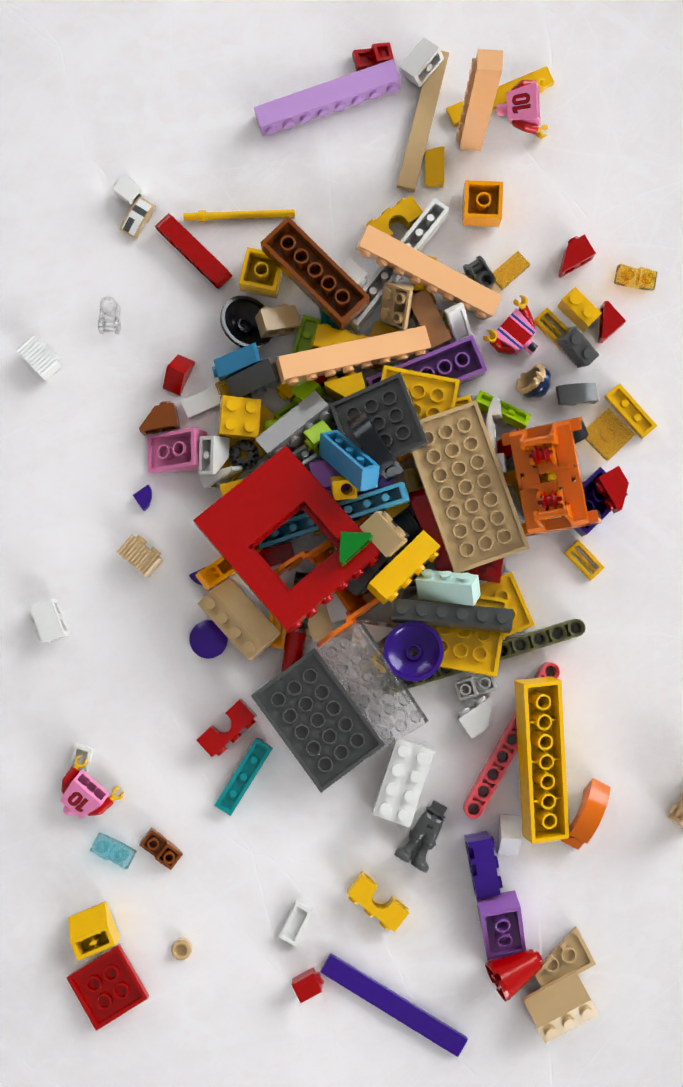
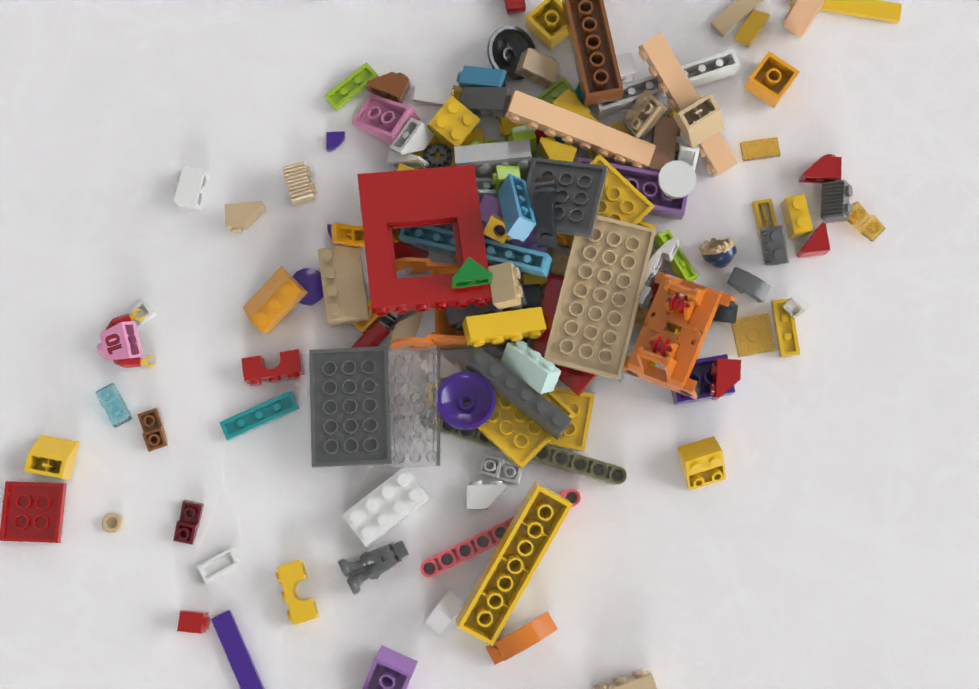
camera: 30 degrees right, 5 degrees down
(110, 615) = (242, 215): none -> tan slope
(126, 441) = (350, 87): none -> lime plate
(177, 374) = (428, 60): red slope -> none
(188, 671) = (274, 301): none -> light orange slope
(245, 905) = (188, 522): none -> dark red slope
(404, 212) = (699, 46): yellow arch -> none
(449, 280) = (700, 120): none -> tan slope
(462, 343) = (677, 179): none -> white tile
(479, 272) = (733, 134): dark grey piece -> none
(483, 864) = (405, 621): dark purple wedge -> none
(515, 331) = (730, 200): torso -> none
(524, 107) = (859, 23): torso -> none
(573, 548) = (655, 426): yellow tile -> none
(603, 275) = (835, 201): none -> dark grey brick
(630, 388) = (795, 306): none -> white tile
(636, 570) = (702, 462): none -> yellow slope

